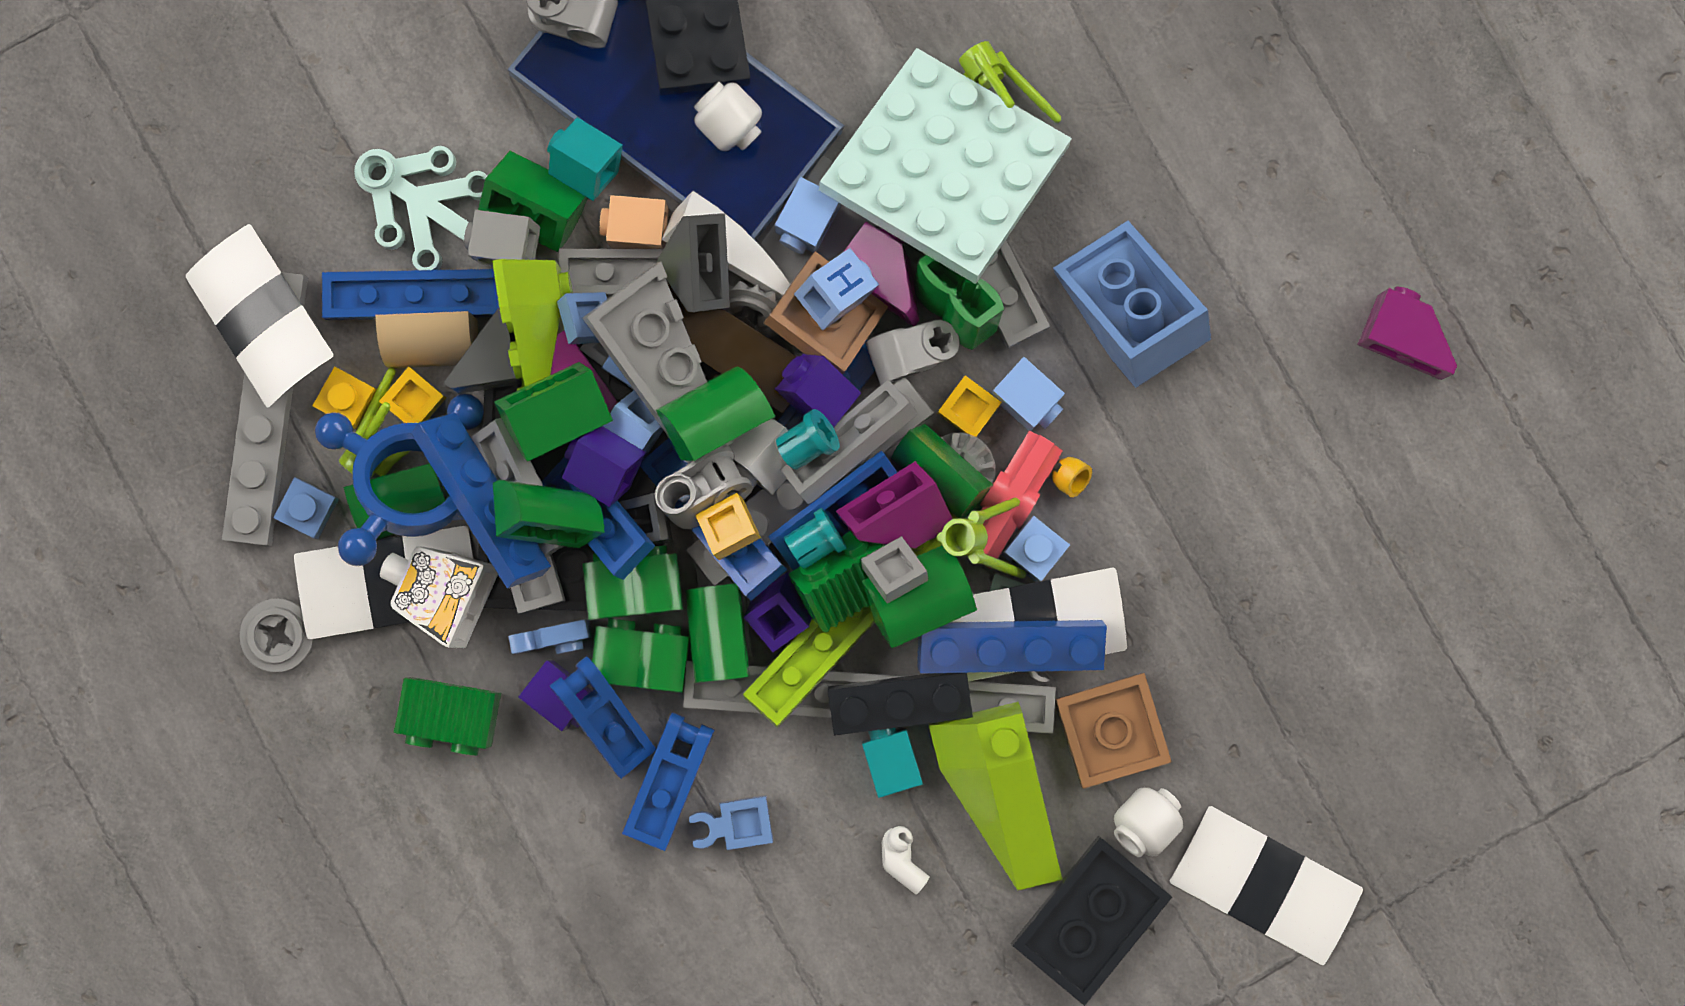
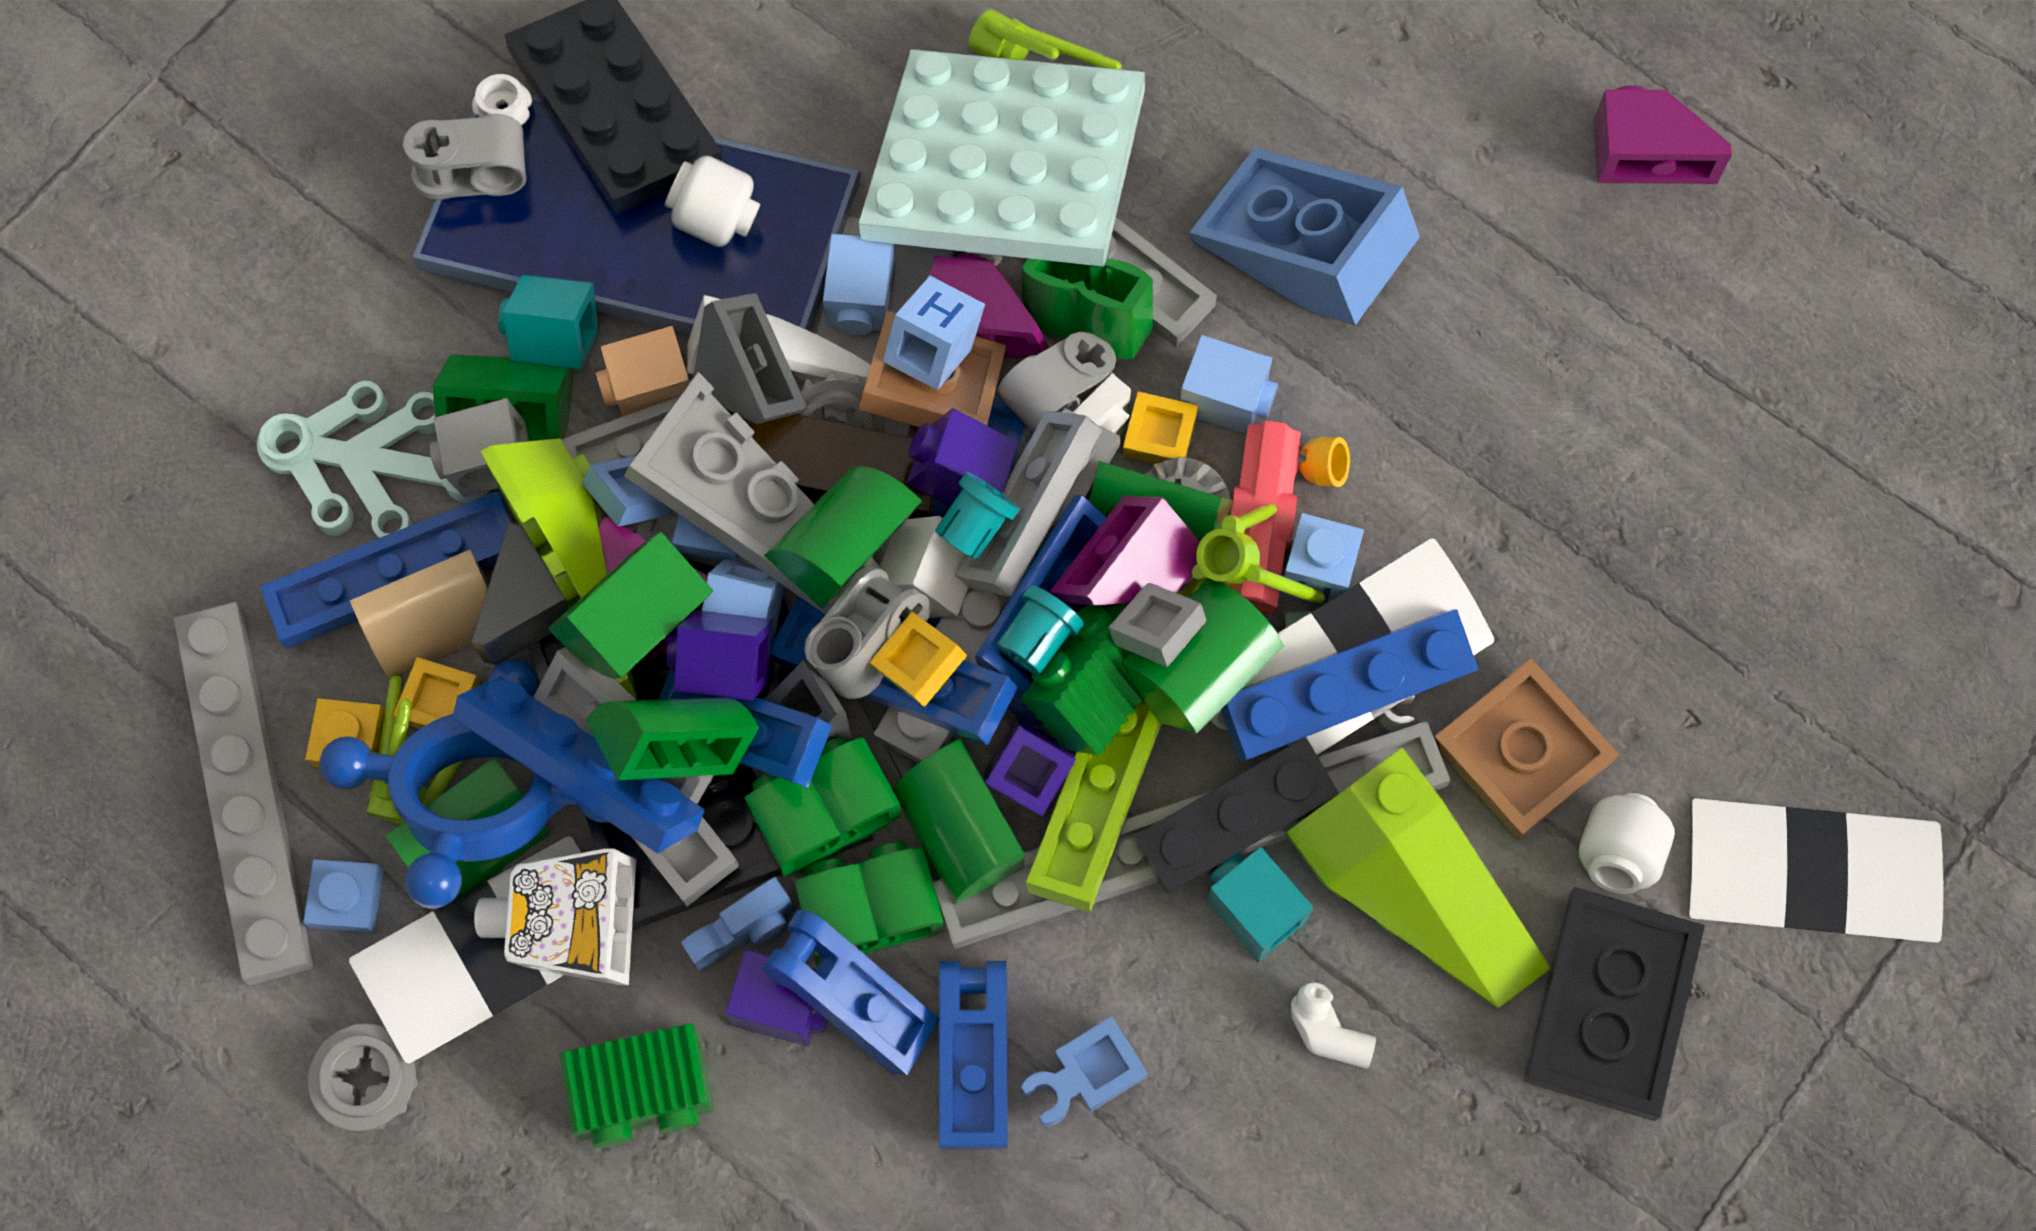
camera: 20 degrees left, 15 degrees down
(258, 314) = (192, 671): white sticker -> none
(935, 381) = (1108, 405): none -> white plate

